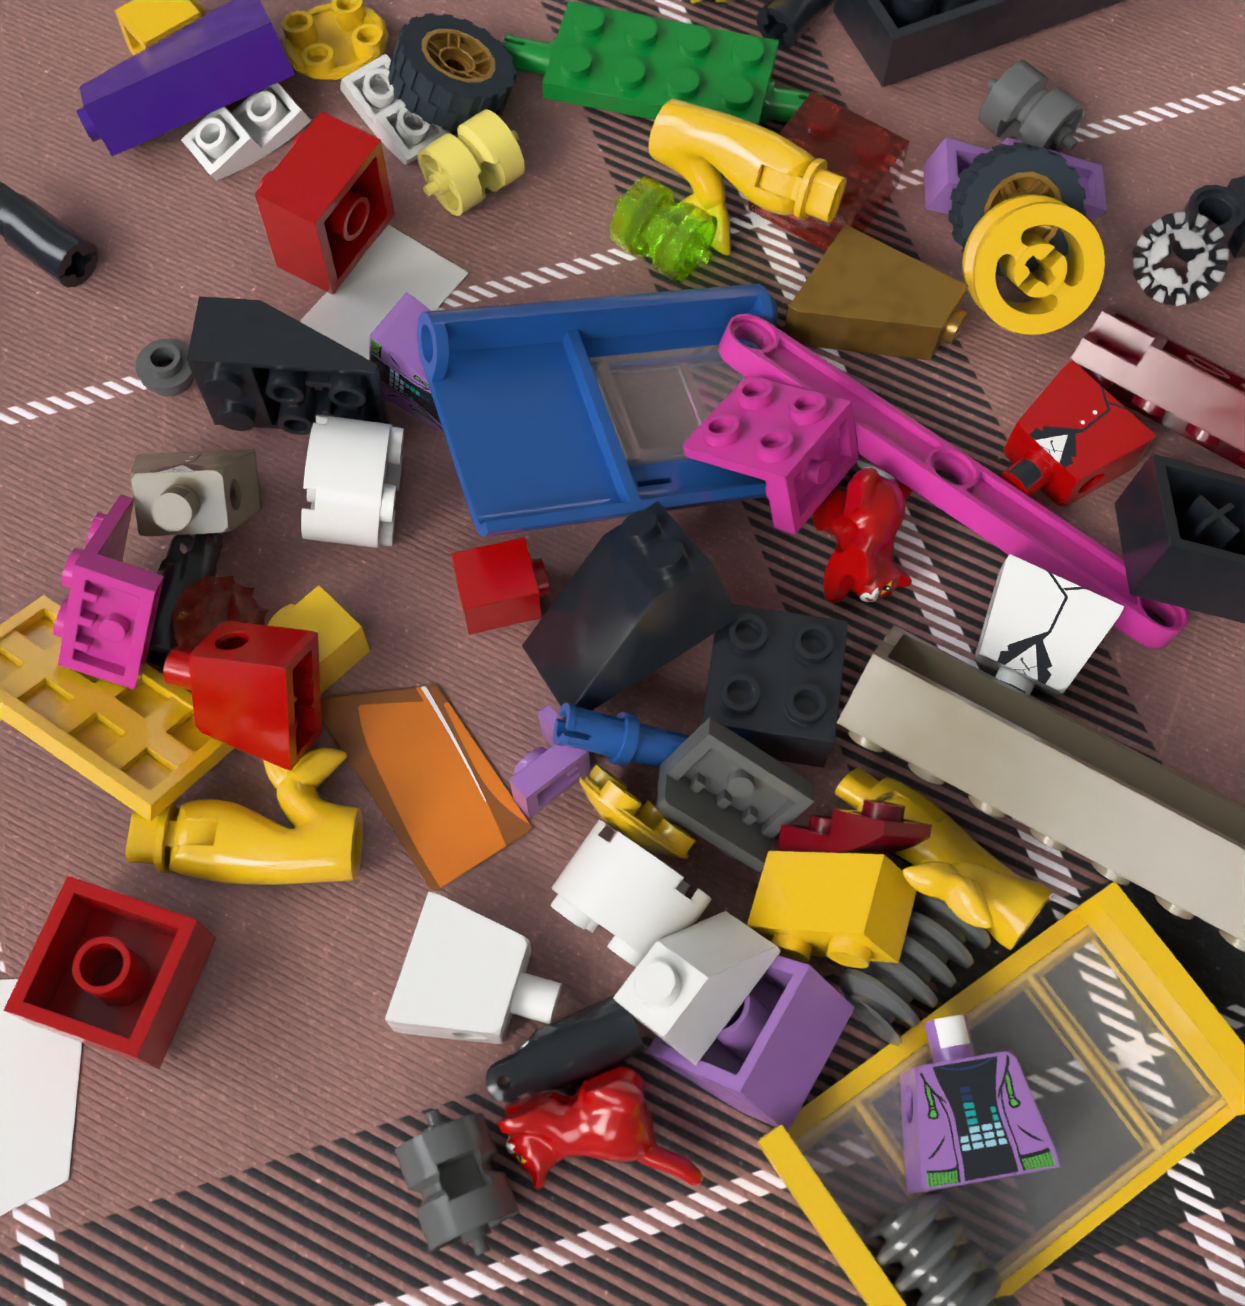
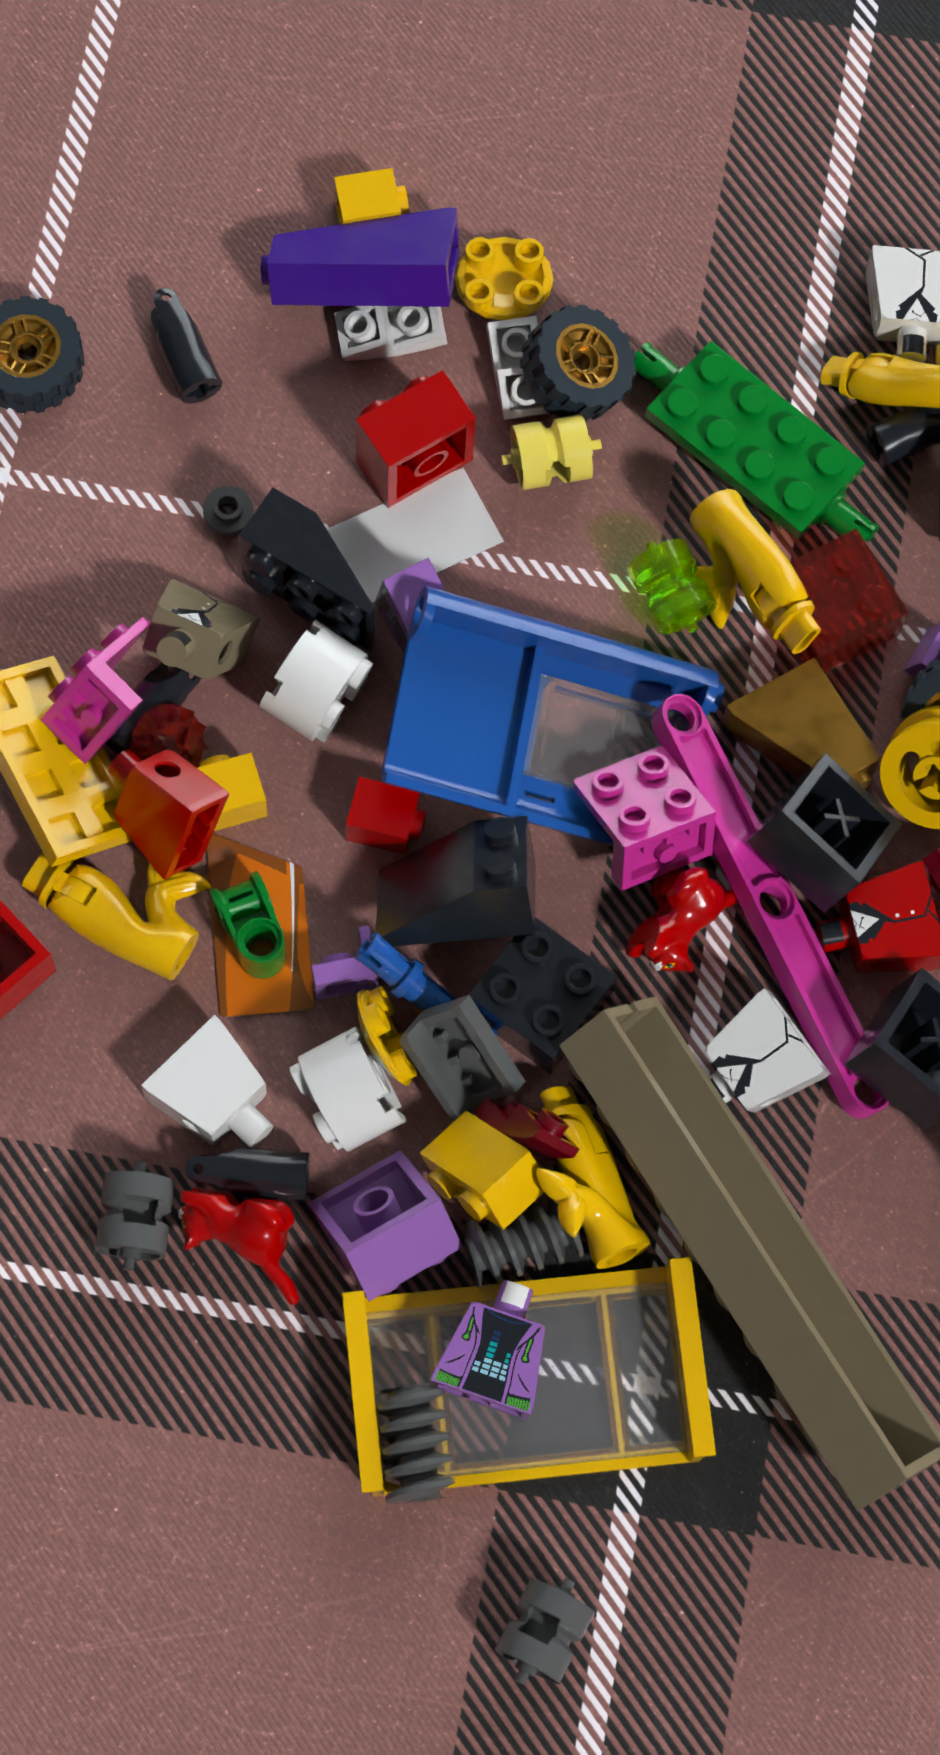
camera: 25 degrees right, 5 degrees up
(406, 764) = (249, 917): none -> green piece
(696, 981) = (361, 1170): white slope -> none
(965, 378) = (824, 833): none -> black brick

